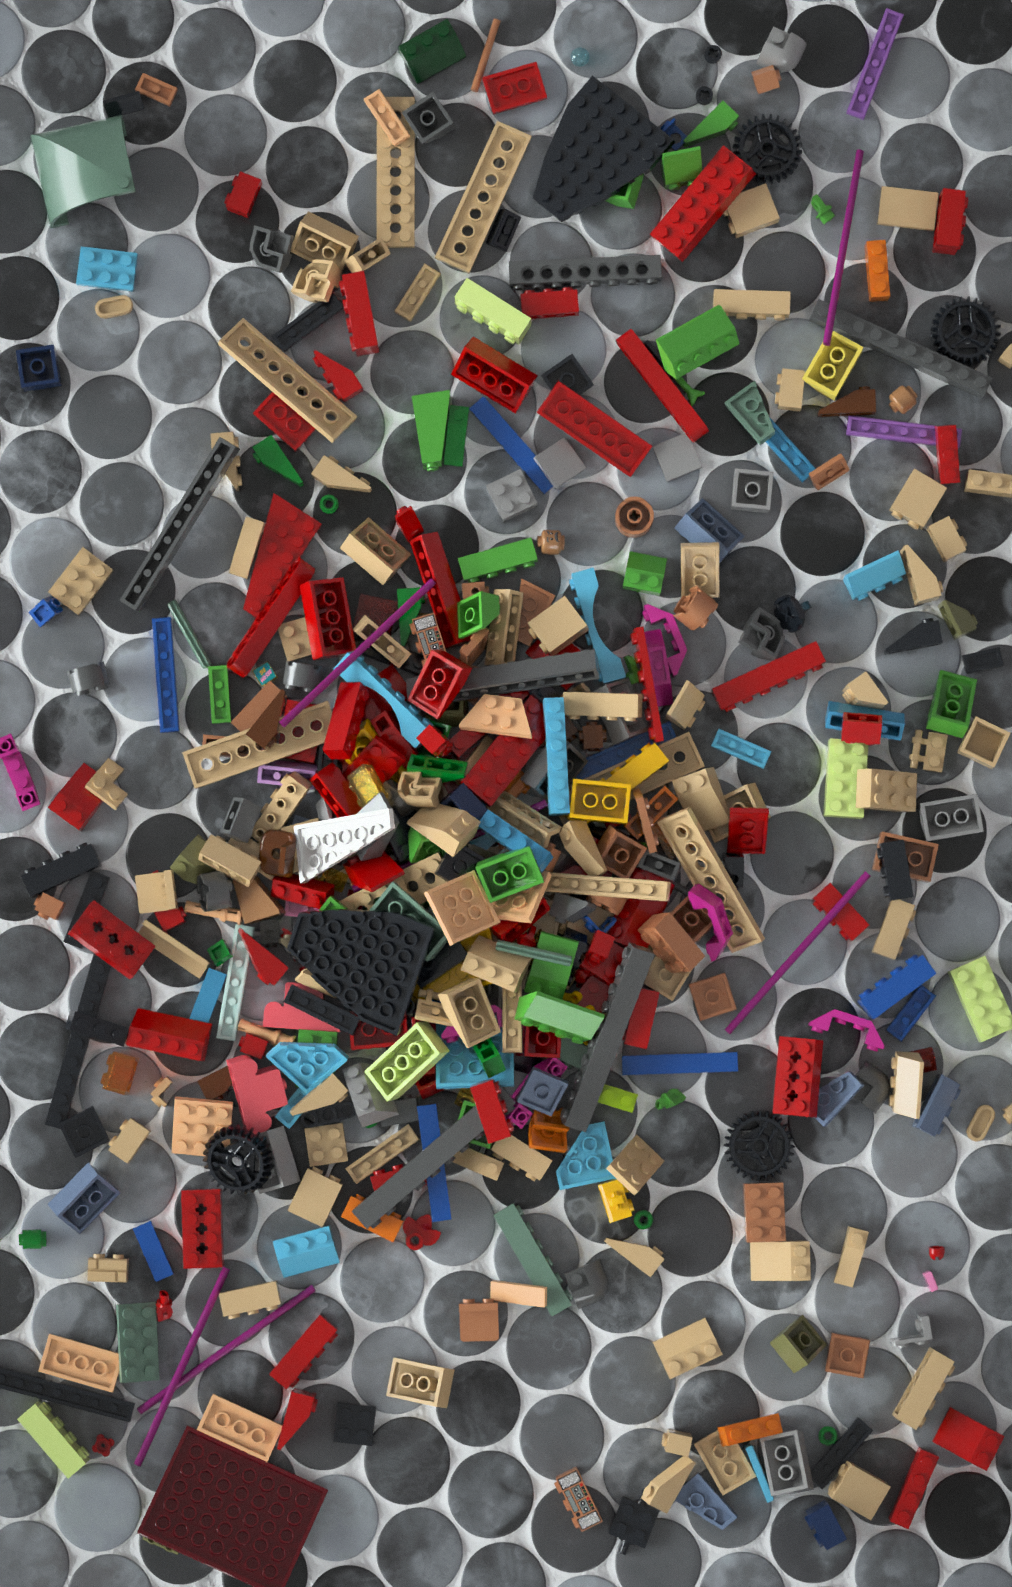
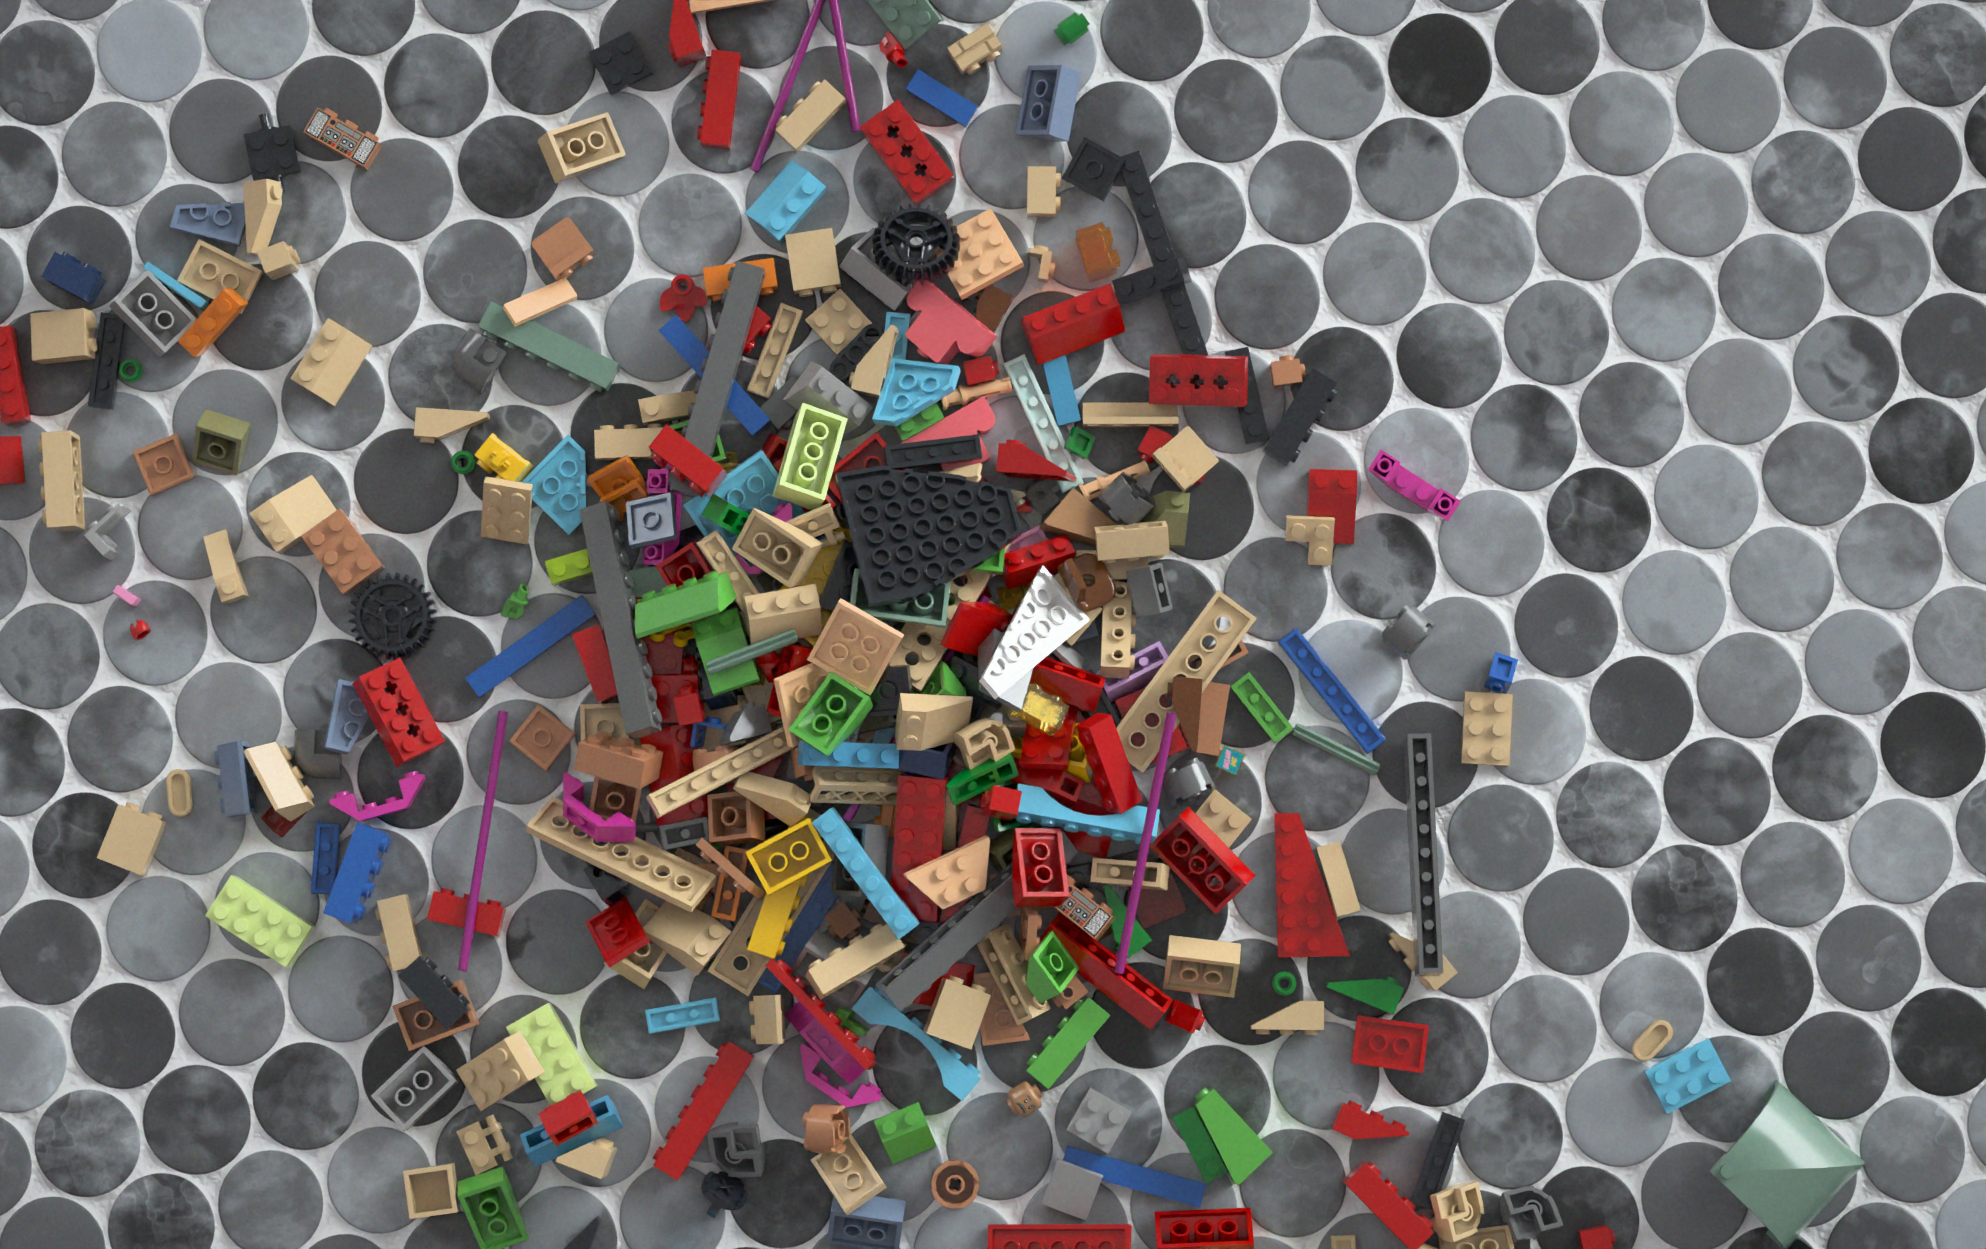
camera: 145 degrees right, 0 degrees up
(38, 368) = (1684, 921): dark blue brick -> none
(270, 618) = (1263, 822): red beam -> none
(287, 368) = (1422, 1098): tan plate -> none

